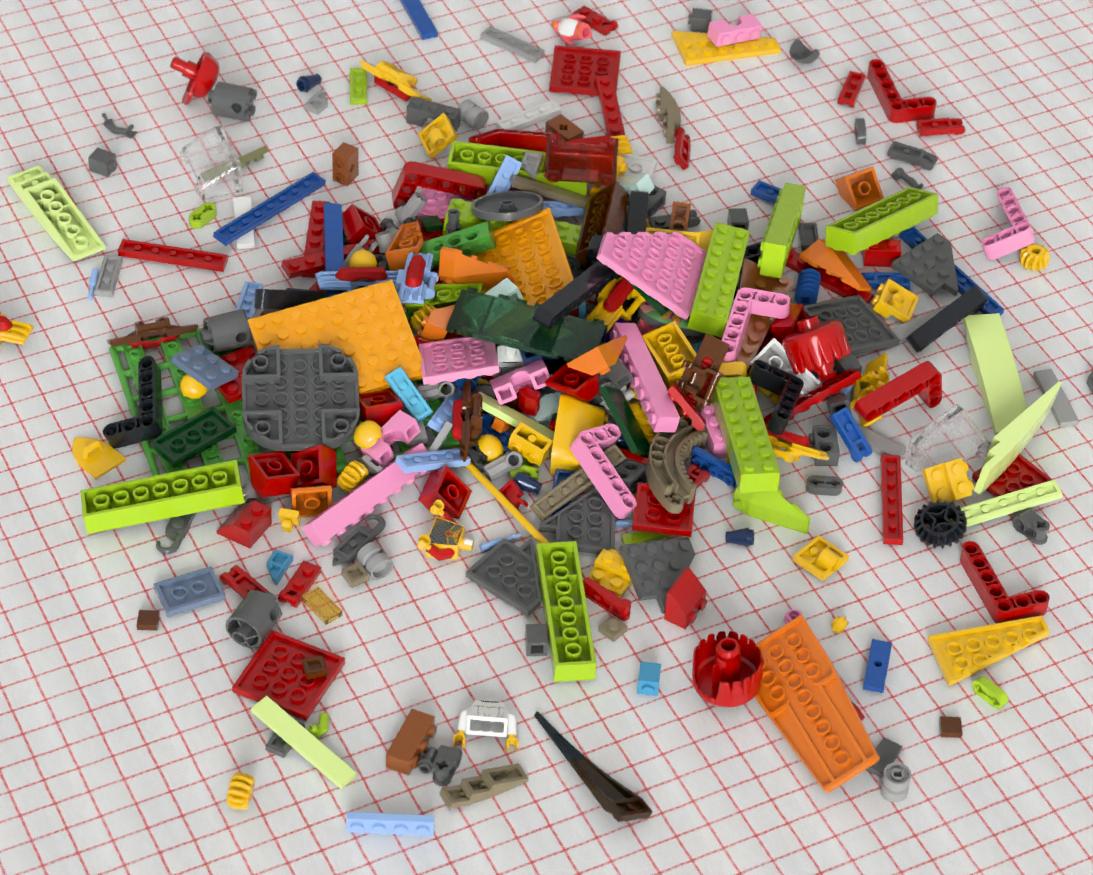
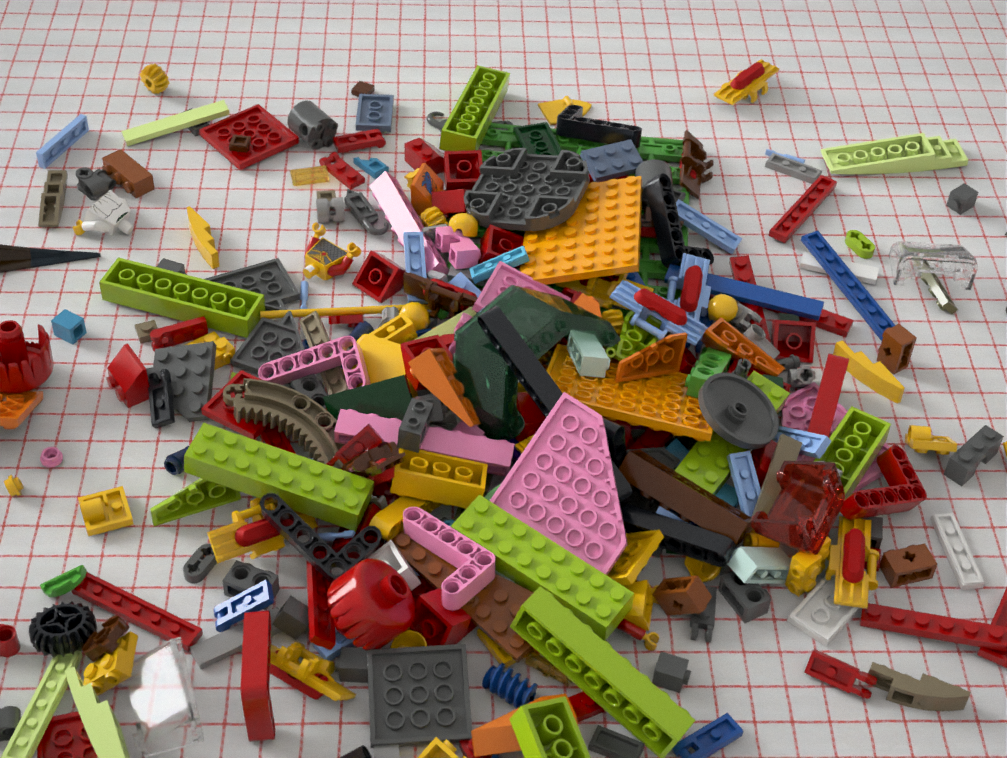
camera: 115 degrees right, 0 degrees up
(322, 727) = (185, 139): lime arm -> none
(373, 182) = (872, 375): none -> yellow slope
(467, 643) = (201, 235): none -> yellow slope
(473, 115) = (966, 489): light grey wheel -> none
(651, 363) = (415, 425): none -> dark grey brick
(700, 566) = (161, 399): none -> black hinge
(903, 545) = (64, 583): none -> bright green tile
(945, 473) = (105, 639): none -> reddish brown plate

